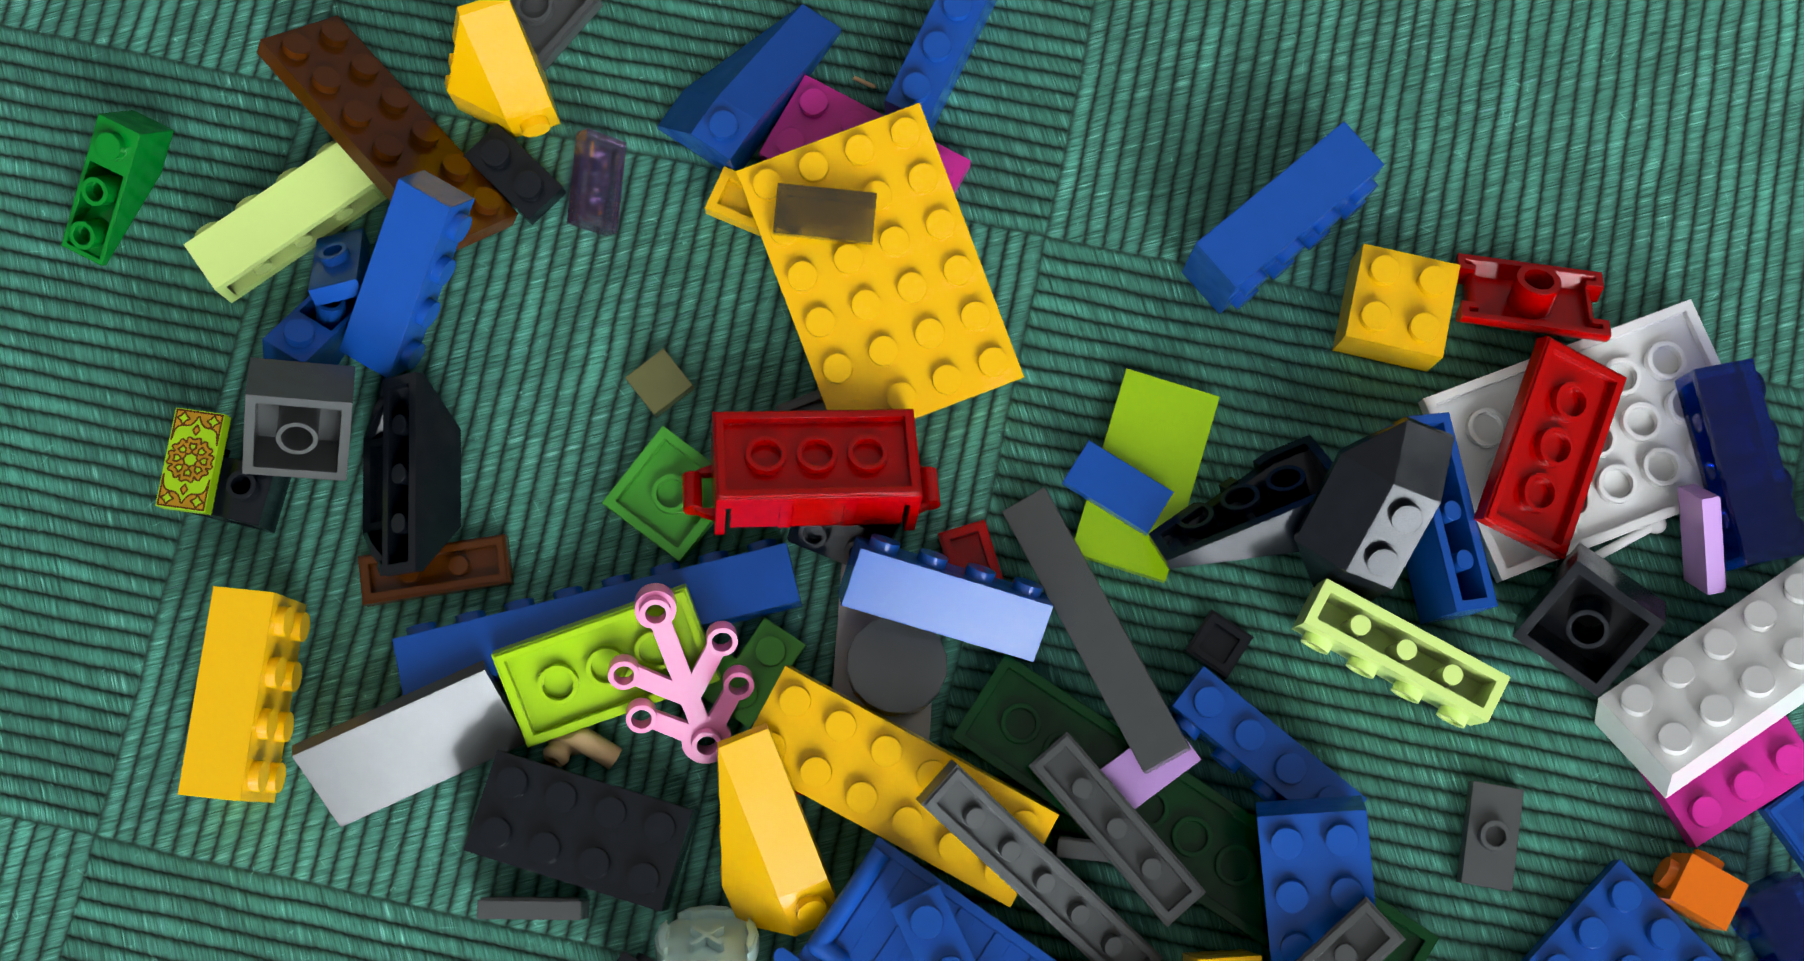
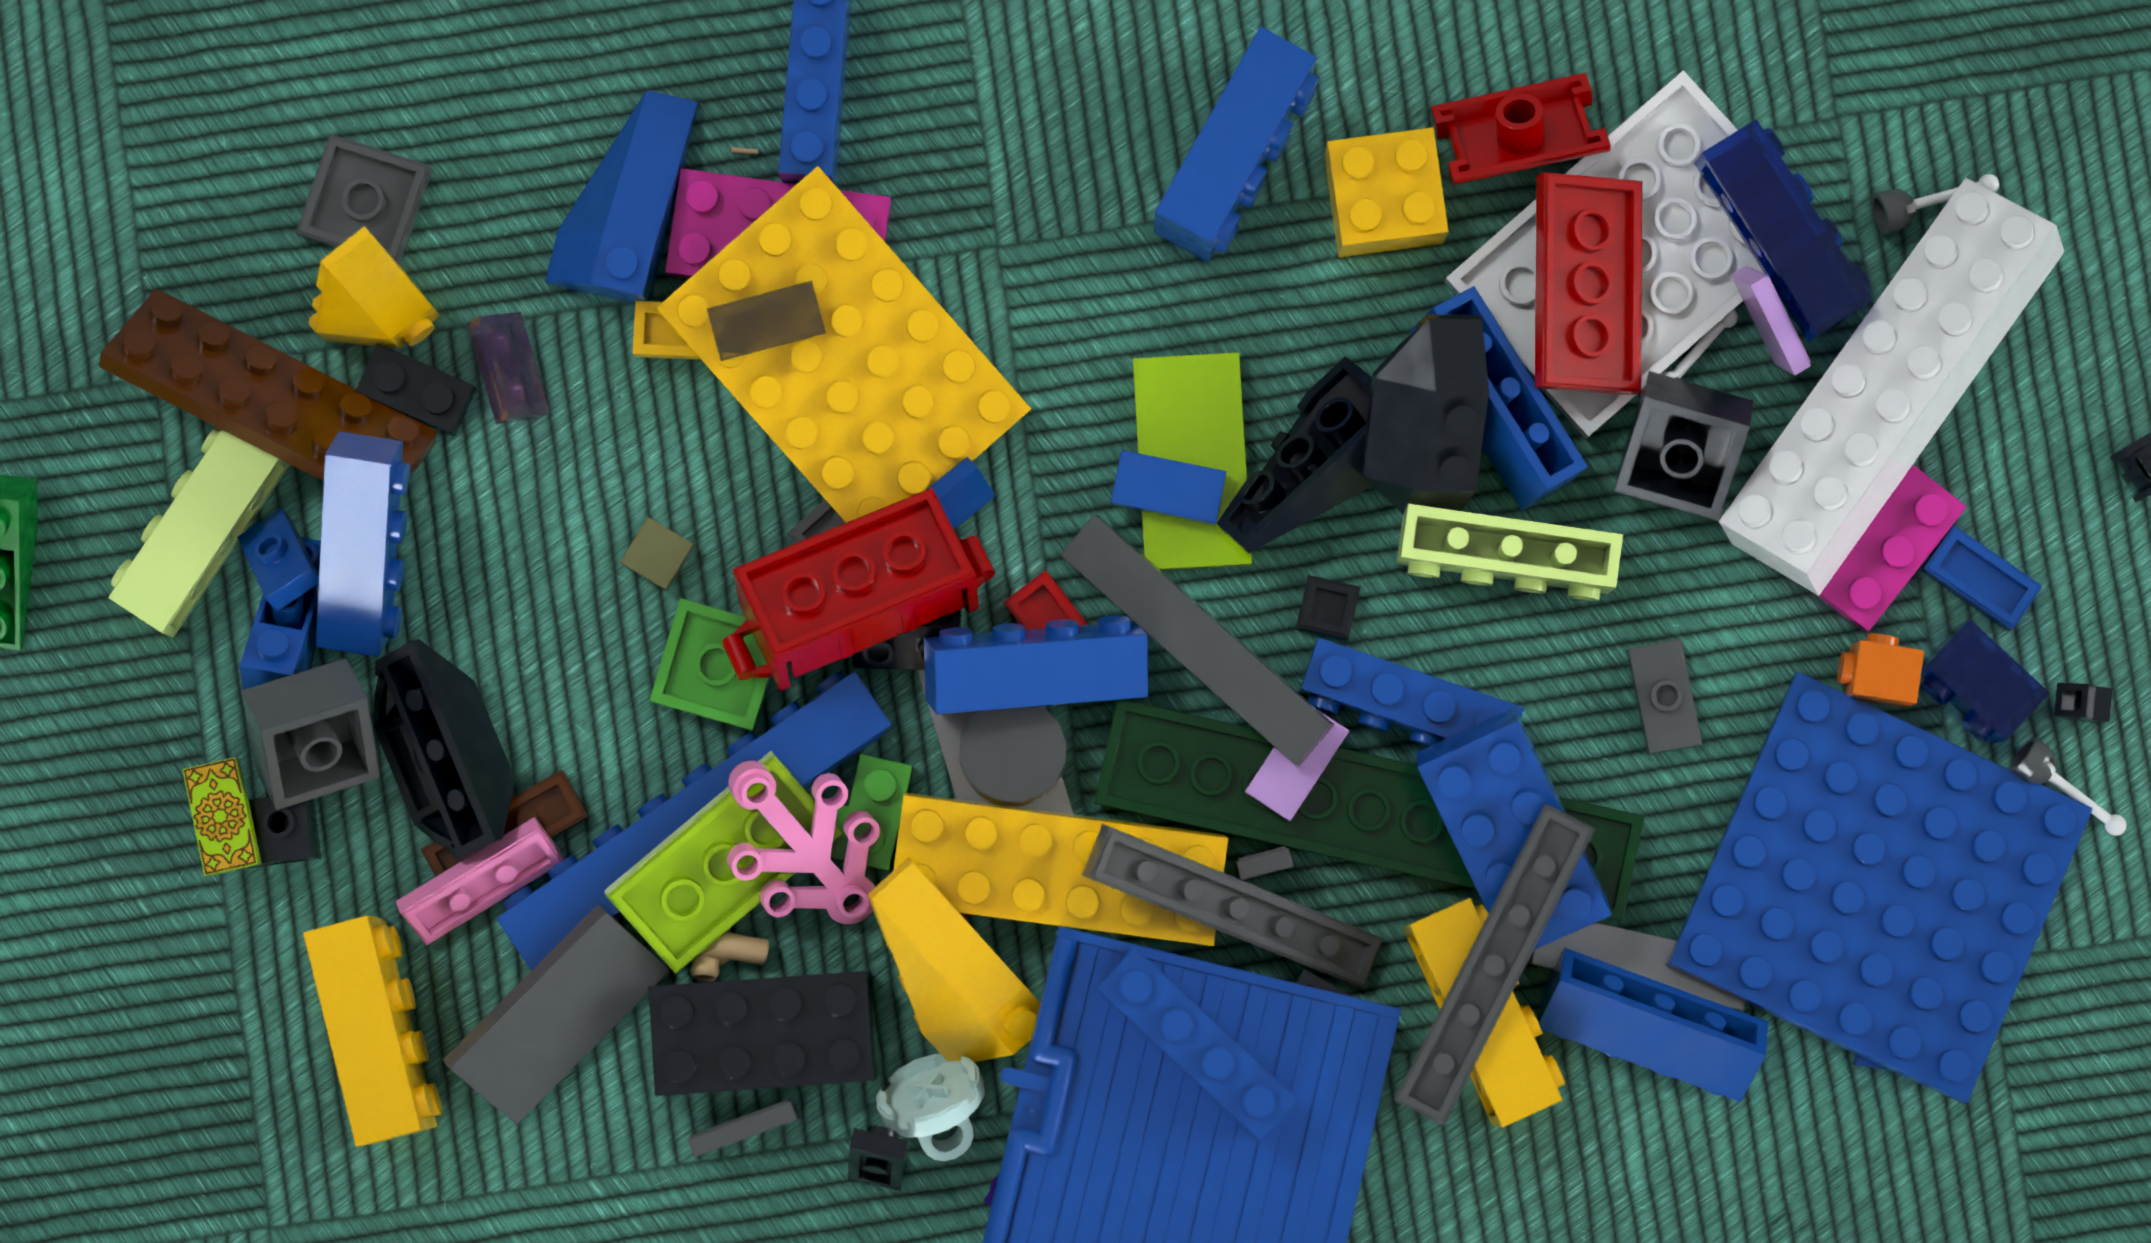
camera: 20 degrees left, 5 degrees up
(394, 602) = (479, 881): none -> bright pink tile
(938, 426) = (962, 492): none -> blue tile
(1117, 829) = (1289, 830): dark grey tile -> none

